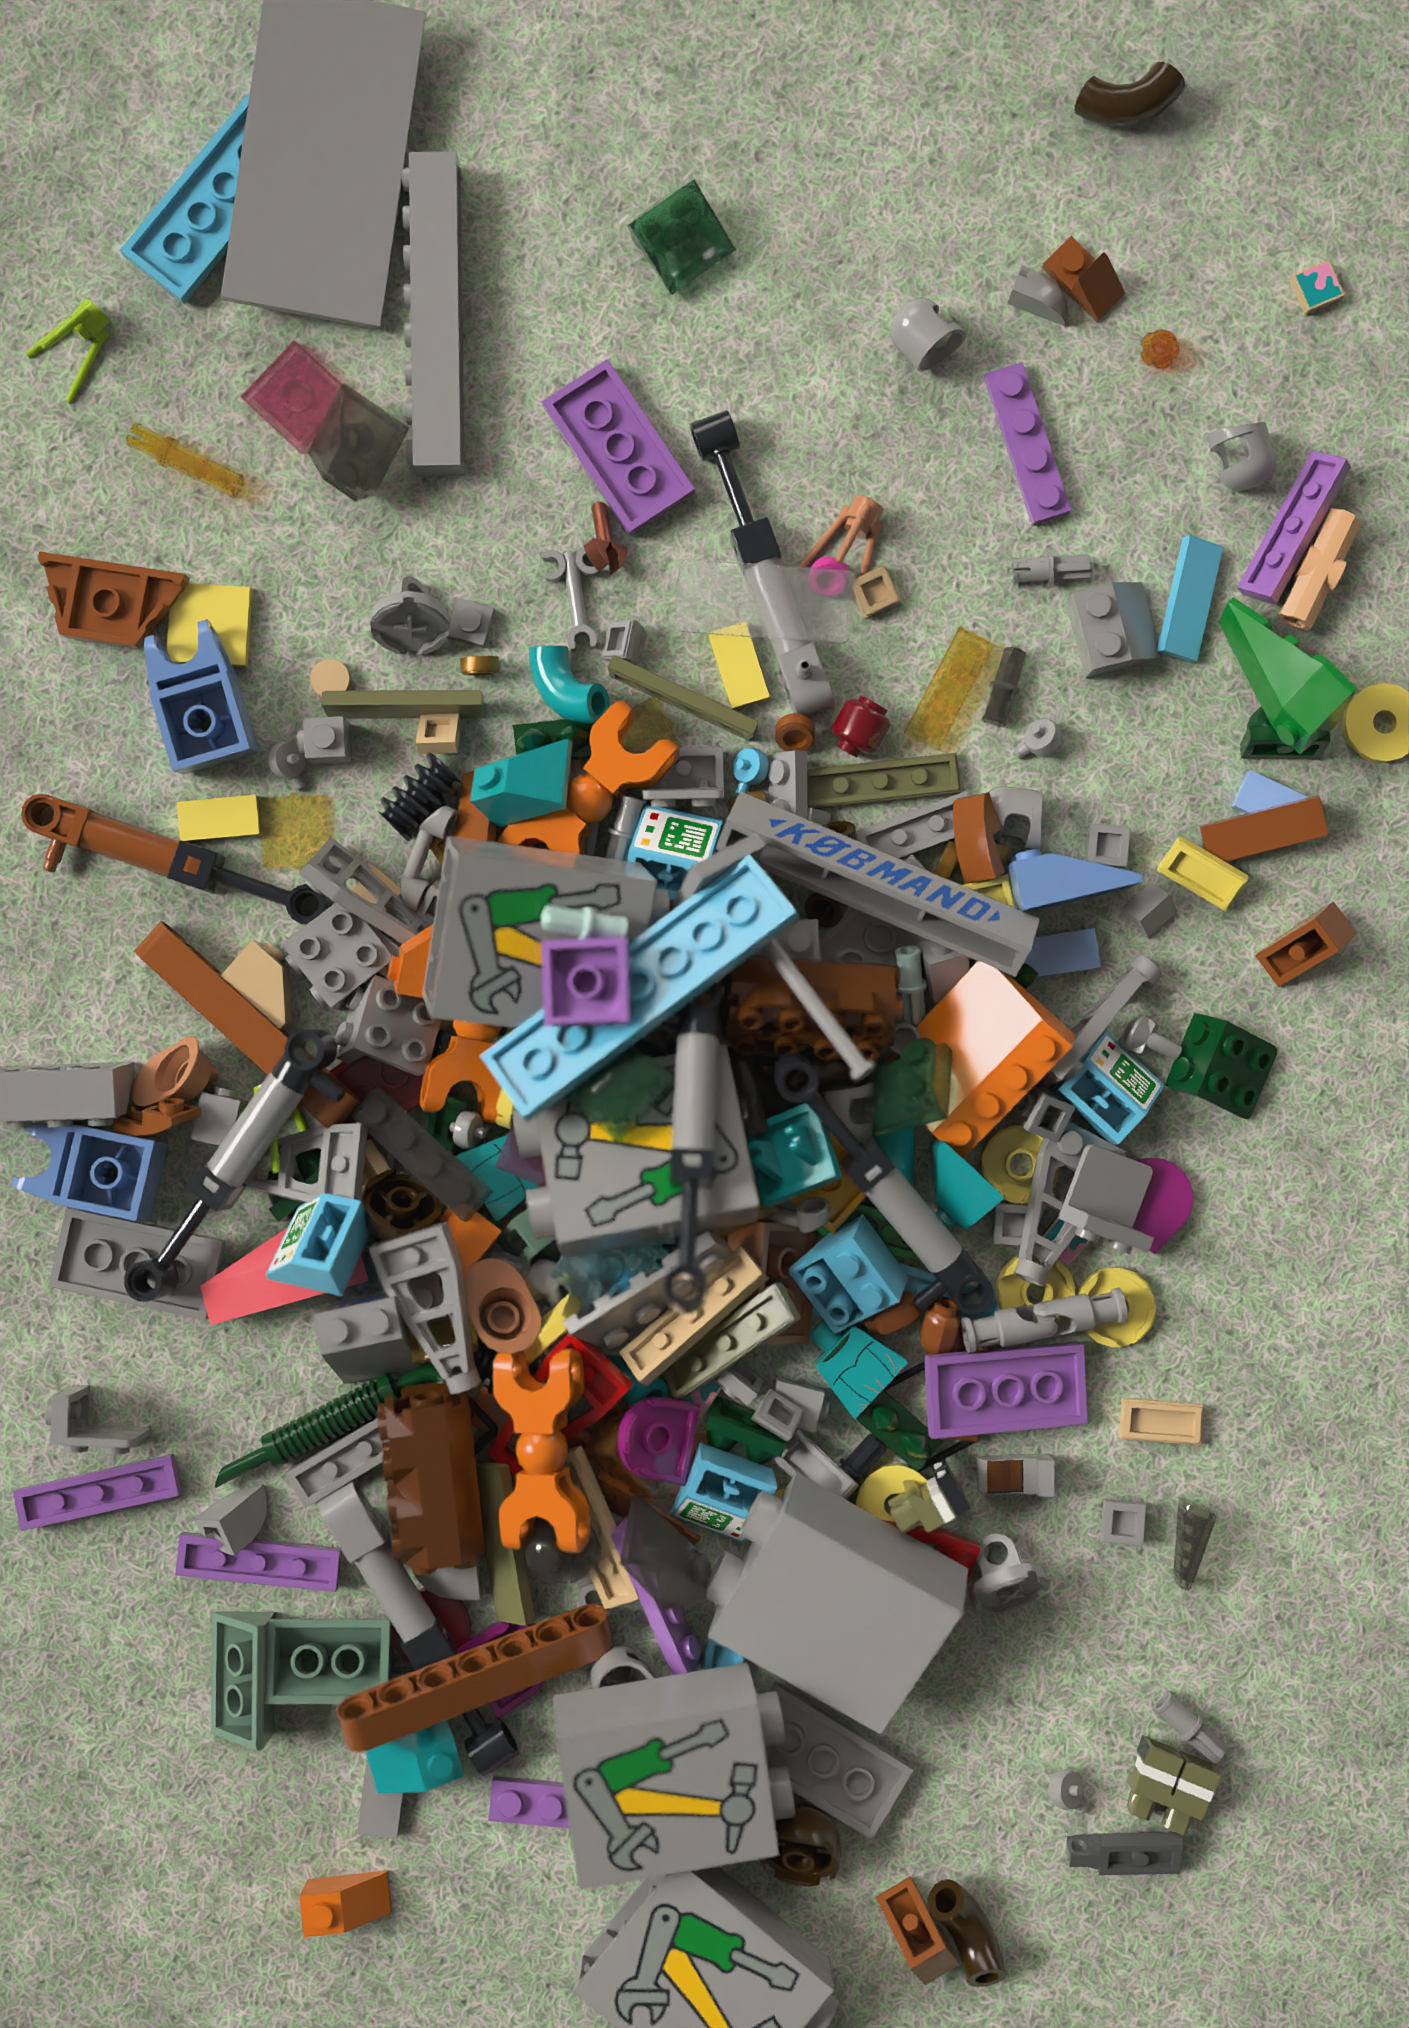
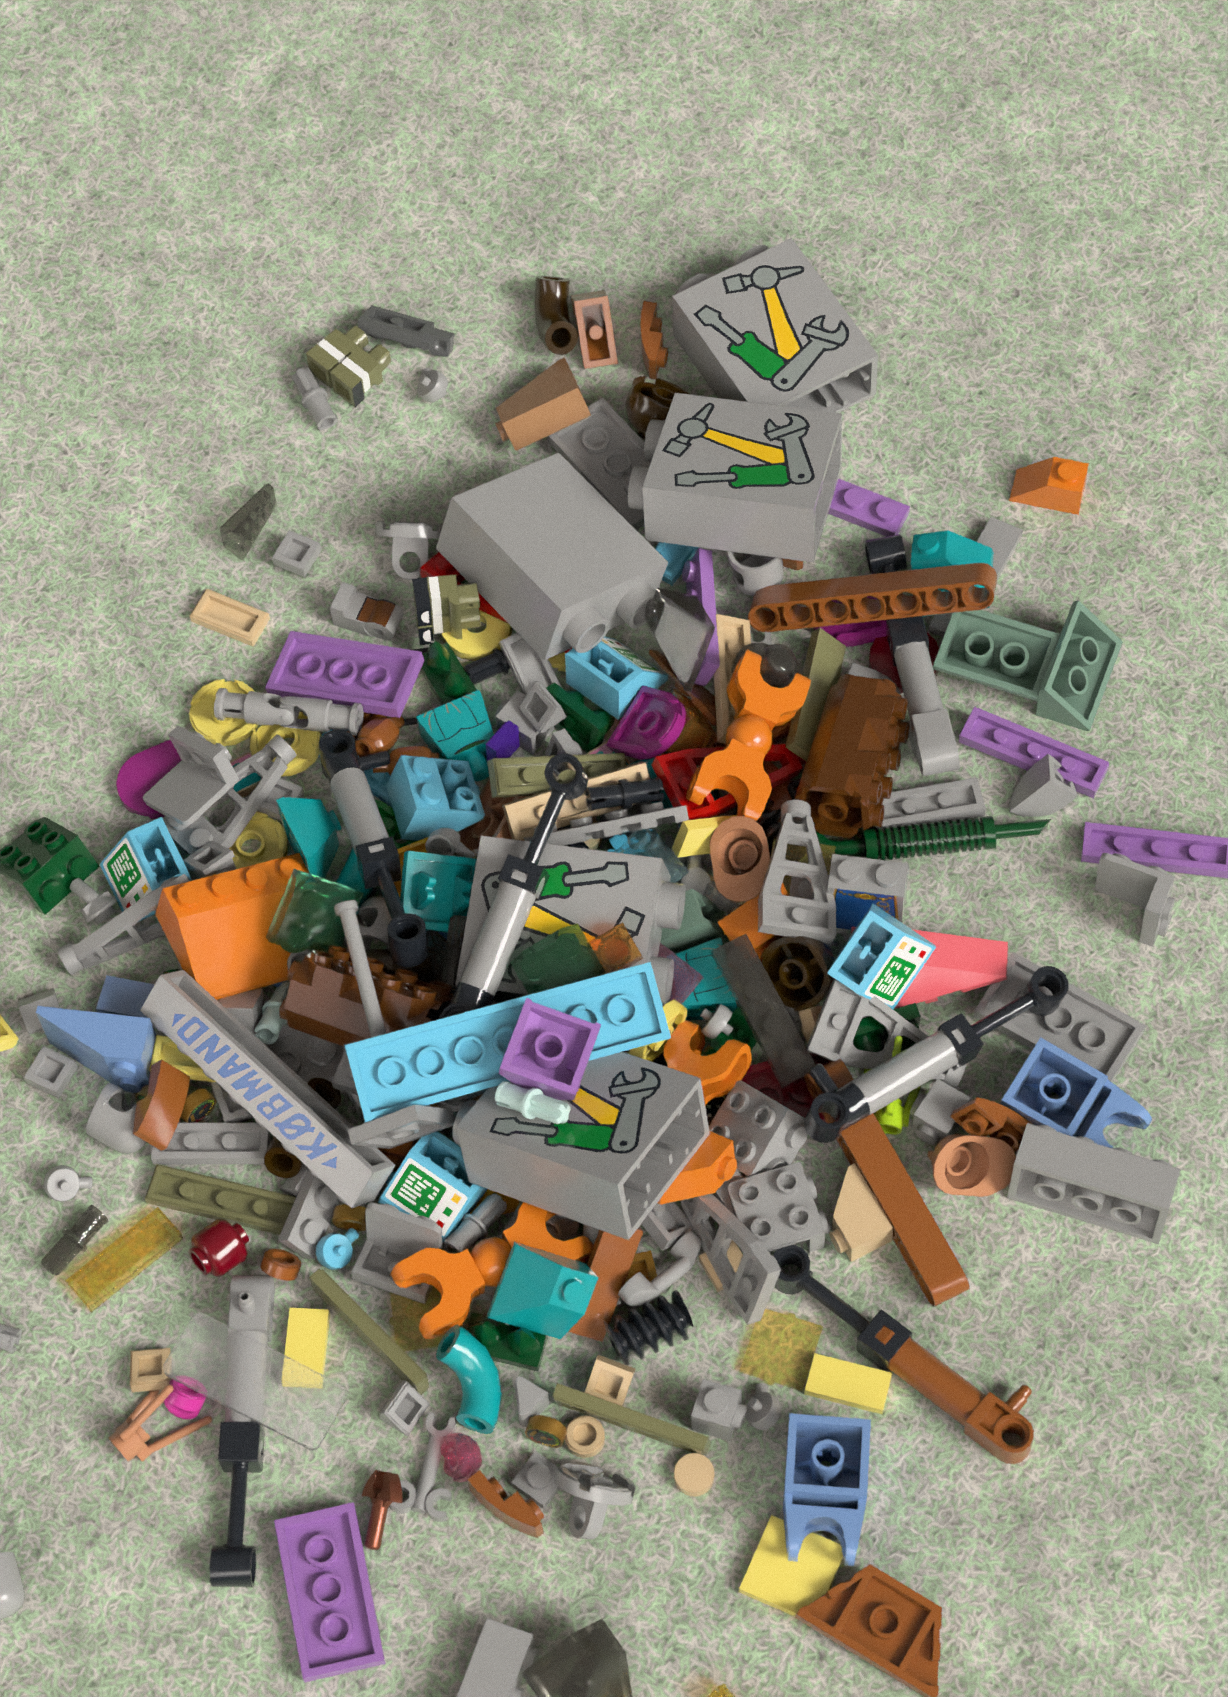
camera: 155 degrees left, 25 degrees down
(444, 675) = (585, 1436): none -> tan tile
(477, 579) = (514, 1511): none -> dark orange slope
(505, 687) = (530, 1399): none -> light grey slope
(547, 611) = (461, 1456): none -> clear pink plate
(568, 1126) = (616, 949): none -> clear orange plate
(646, 1337) = (624, 794): none -> black pin
(806, 1365) = (503, 742): none -> dark purple tile
(845, 1933) = (653, 351): none -> dark orange slope
(930, 1802) = (542, 407): none -> medium nougat slope

